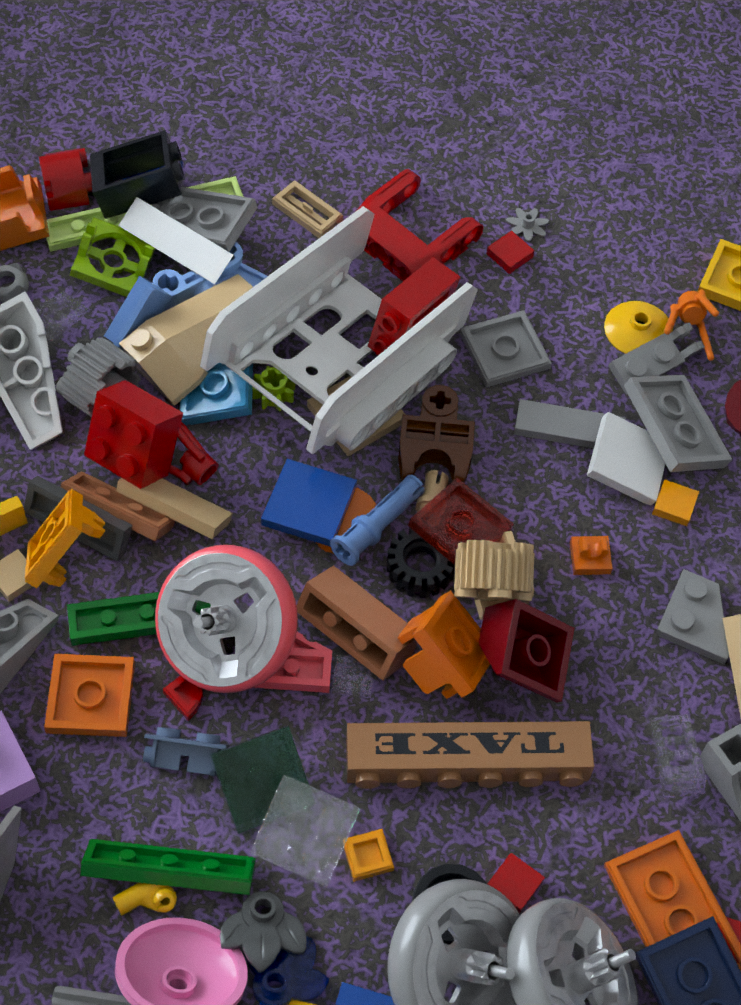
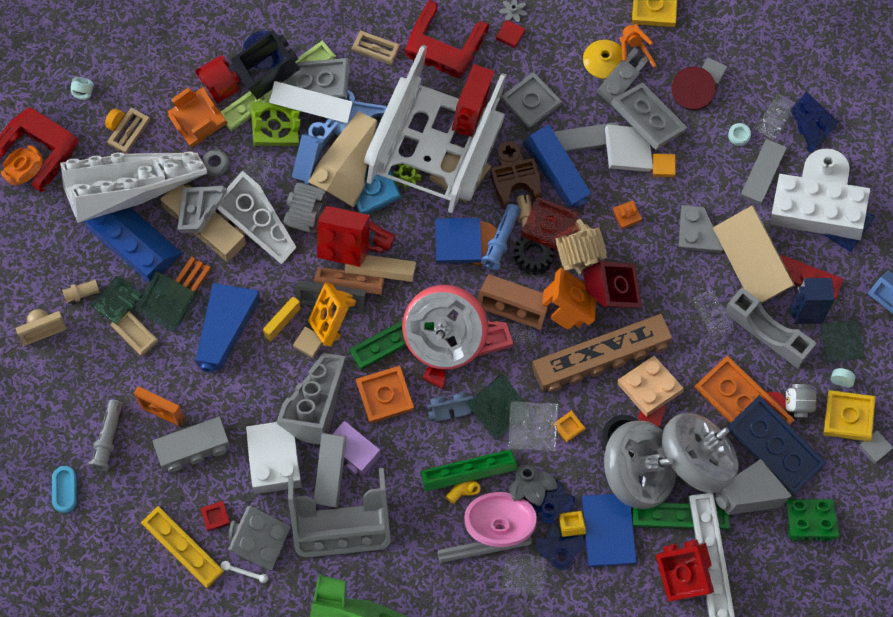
camera: 15 degrees left, 10 degrees up
(506, 445) = (557, 166): none -> blue slope
(529, 836) = (650, 386): none -> light nougat plate

